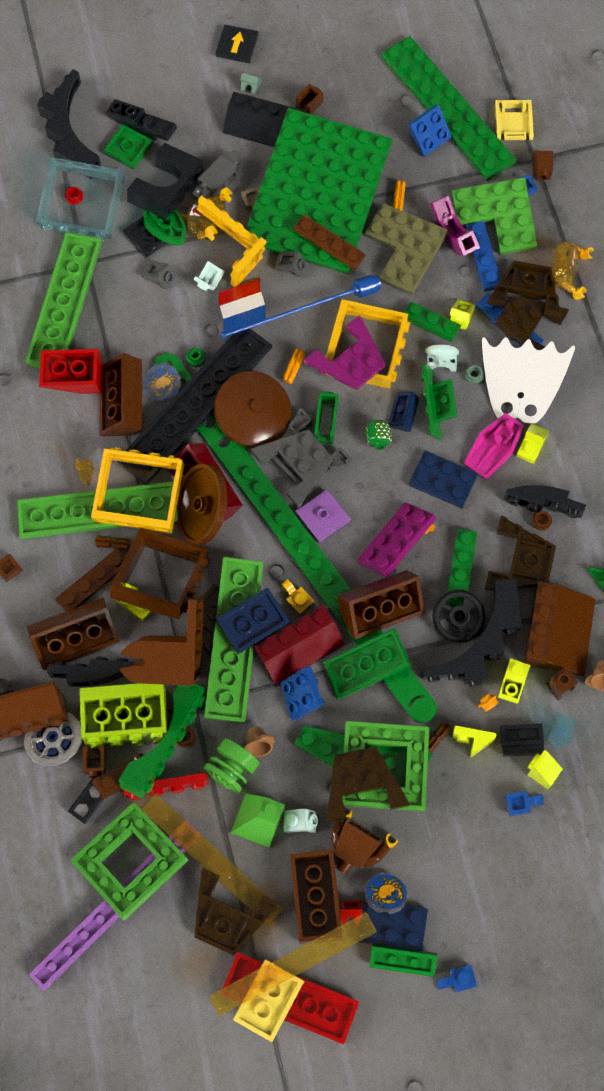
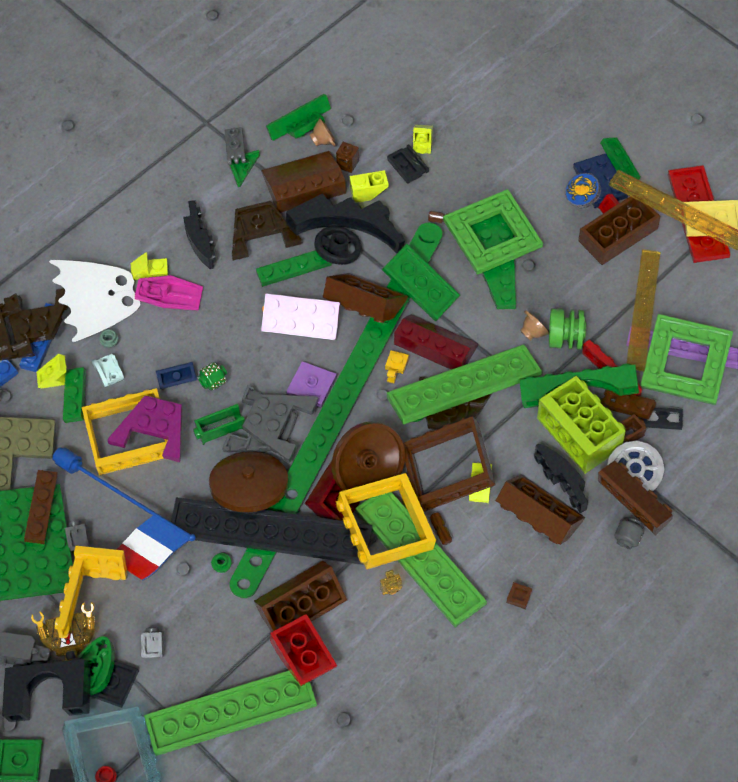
camera: 120 degrees left, 10 degrees down
(91, 582) = (485, 524): reddish brown plate -> none
(162, 382) = (264, 574): clear tile -> none
(169, 658) = (493, 392): reddish brown piece -> none
(209, 277) = (131, 595): light aqua bracket -> none
(224, 924) = (681, 275): dark brown wing -> none
(249, 197) = (23, 607): dark tan plate -> none
(252, 621) = (442, 371): dark blue plate -> none
(258, 819) = (589, 295): bright green slope -> none
(293, 366) = (182, 479): light orange axle -> none
(300, 821) = (571, 271): light aqua bracket -> none
(301, 693) = (475, 314): blue plate -> none
(357, 845) = (562, 223): reddish brown torso -> none
(360, 773) = (512, 240): dark brown wing -> none
(440, 401) = (150, 347): green bracket -> none
(443, 479) = (222, 315): dark blue plate -> none
(460, 979) = (607, 124): blue plate -> none
(479, 738) = (429, 189): neon yellow slope -> none
(488, 701) = (393, 196): light orange plate -> none
(520, 803) = (455, 143): blue plate -> none
(541, 520) = (217, 231): reddish brown plate -> none
(561, 731) = (384, 142): clear light blue brick -> none

